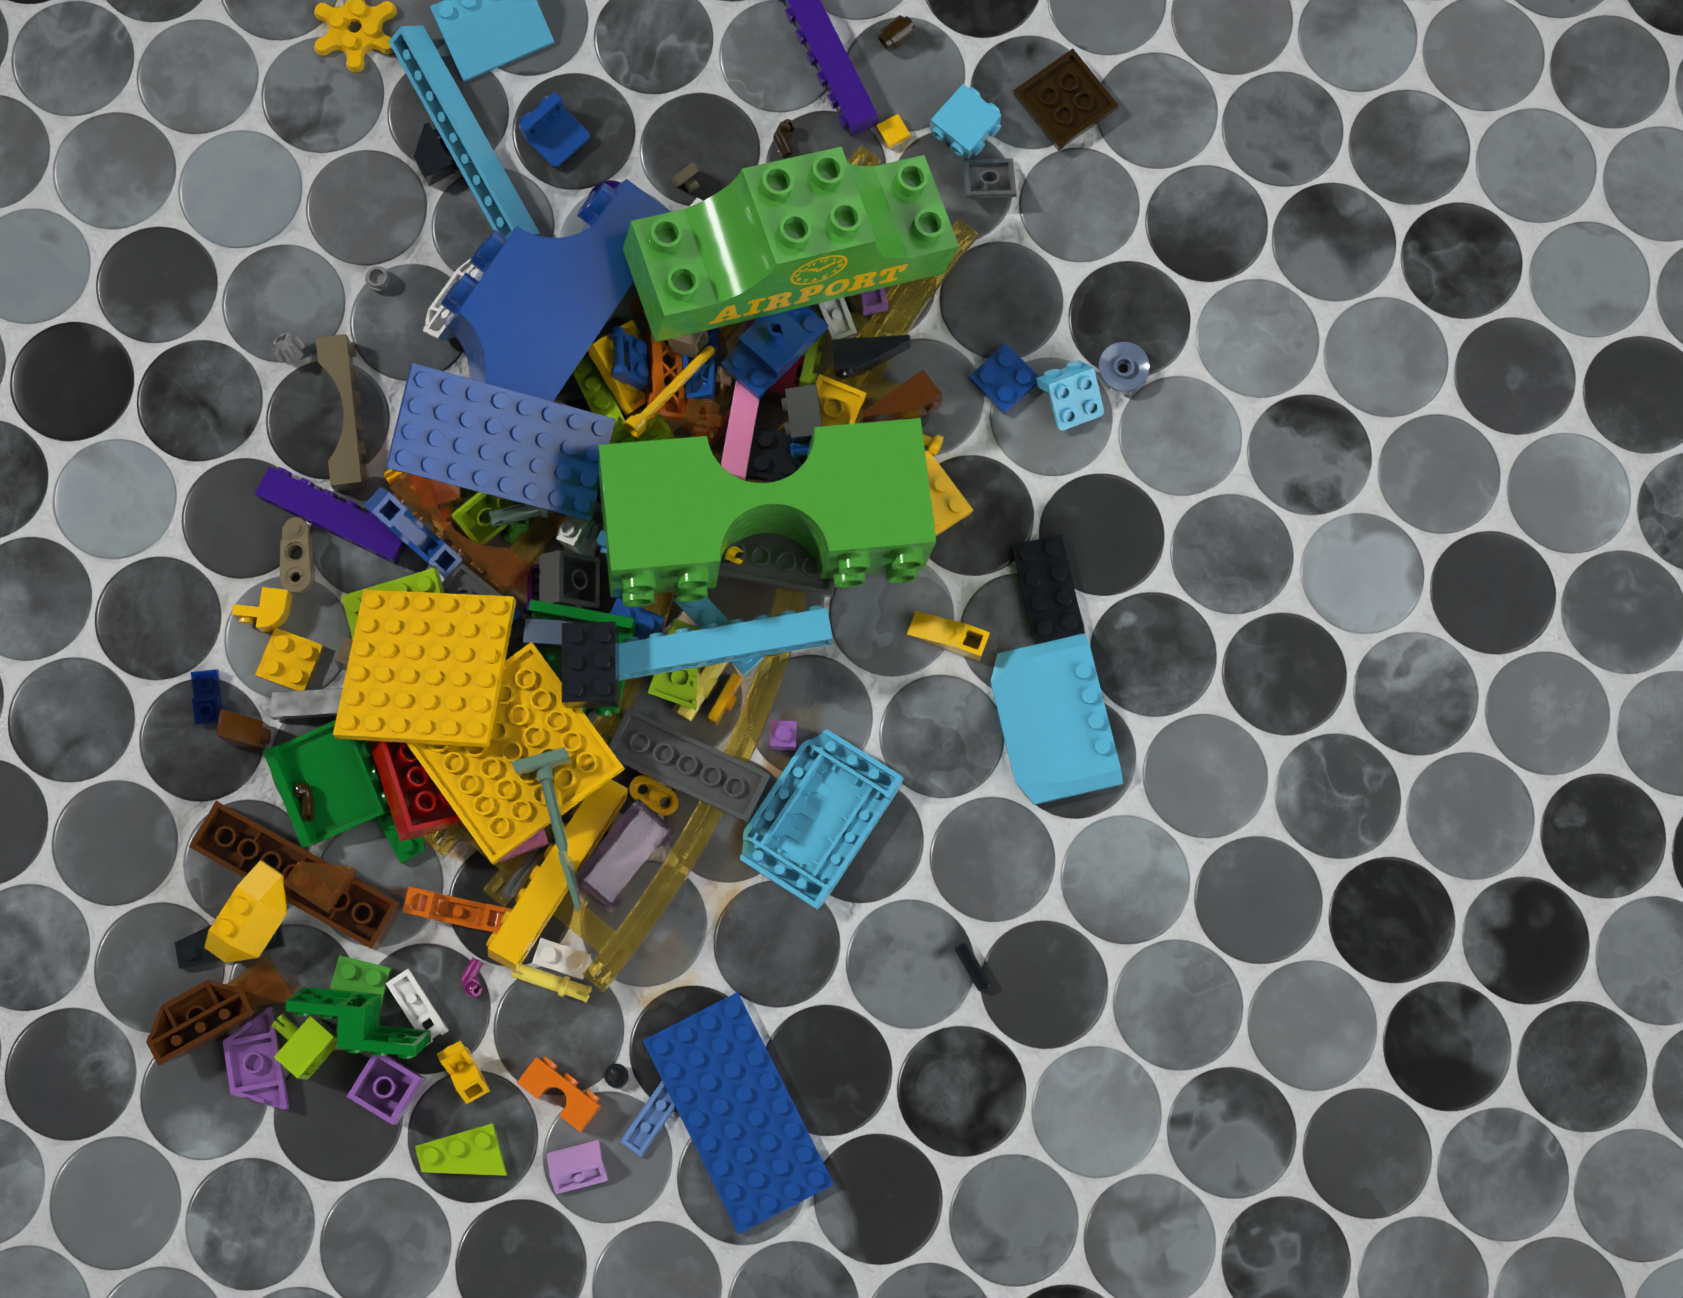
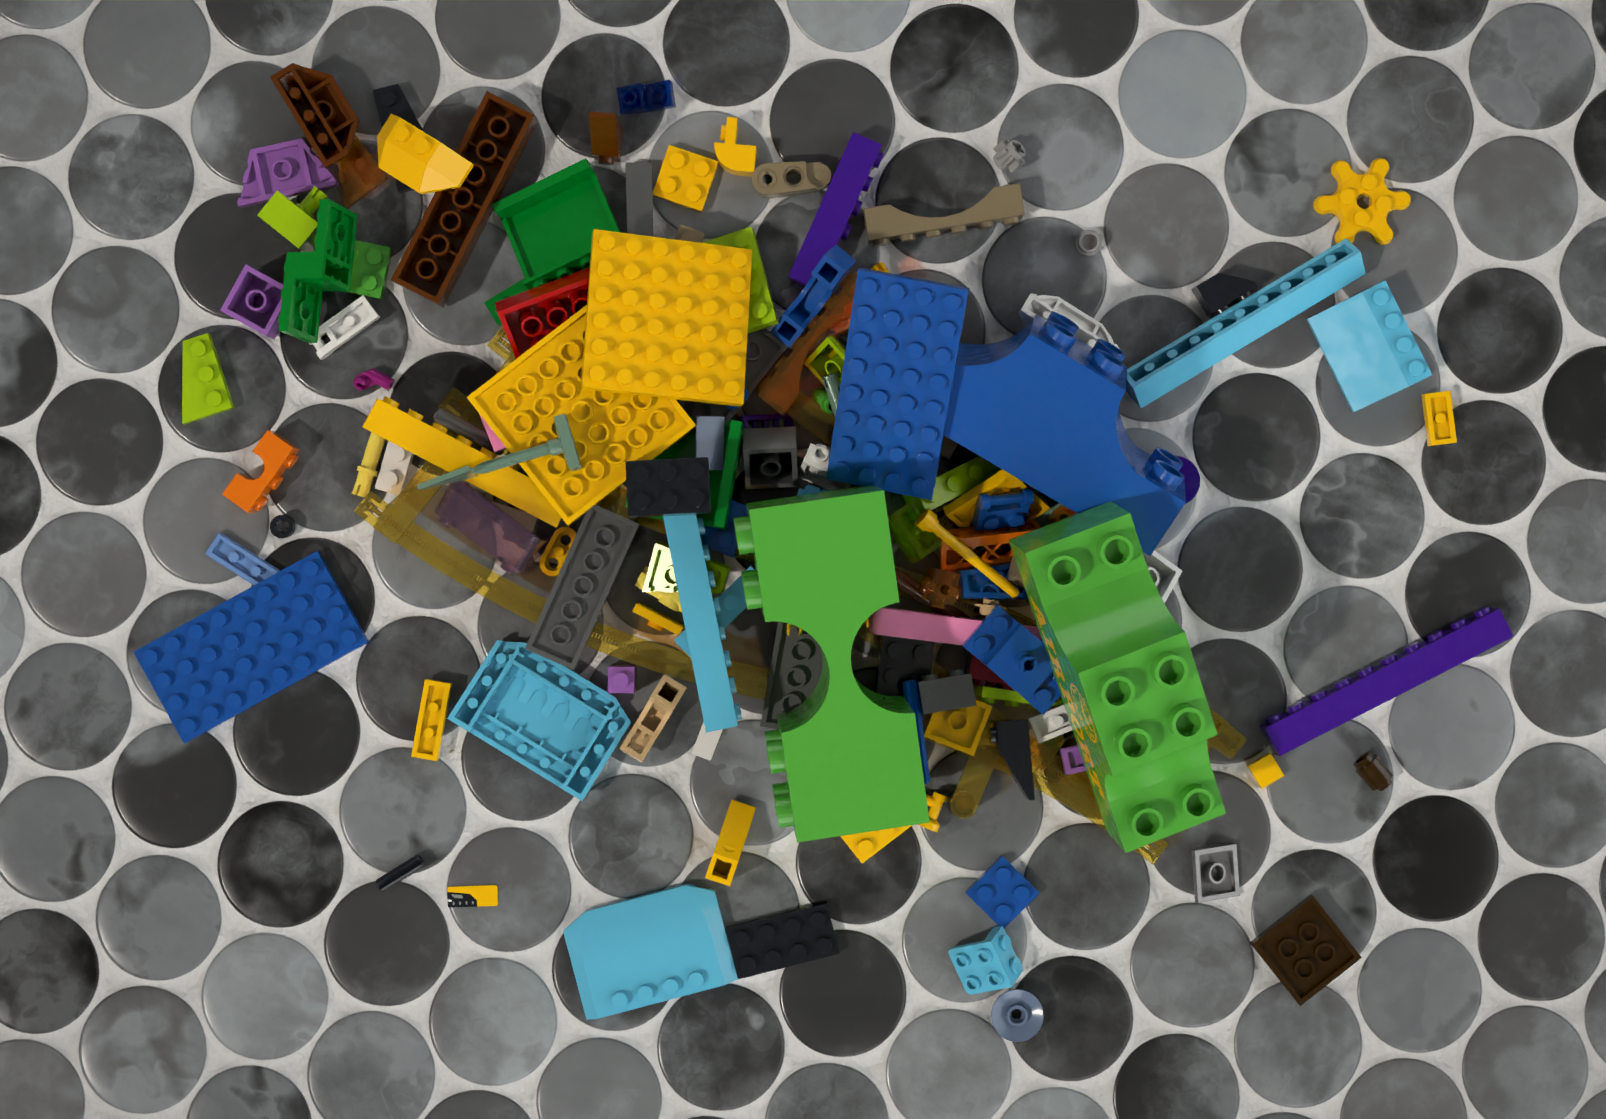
camera: 85 degrees right, 10 degrees up
(307, 801) = (539, 206): dark brown arm -> none
(320, 882) = (453, 224): clear orange wing -> none
(453, 910) = (438, 360): orange slope -> none
(463, 1071) = (277, 378): yellow brick -> none
(553, 131) = (1253, 417): blue bracket -> none
(576, 1167) = (193, 491): lavender panel -> none
(686, 177) = (1207, 556): dark tan tile -> none
(782, 137) = (1255, 654): dark brown arm -> none
(818, 928) = (431, 719): none -> yellow plate
(819, 704) = (653, 718): none -> tan arch
(843, 656) = (706, 743): none -> white sticker
(906, 401) = (966, 799): reddish brown slope -> none
(966, 122) = (1275, 848): medium azure brick -> none
(998, 895) = (472, 896): none -> yellow sticker

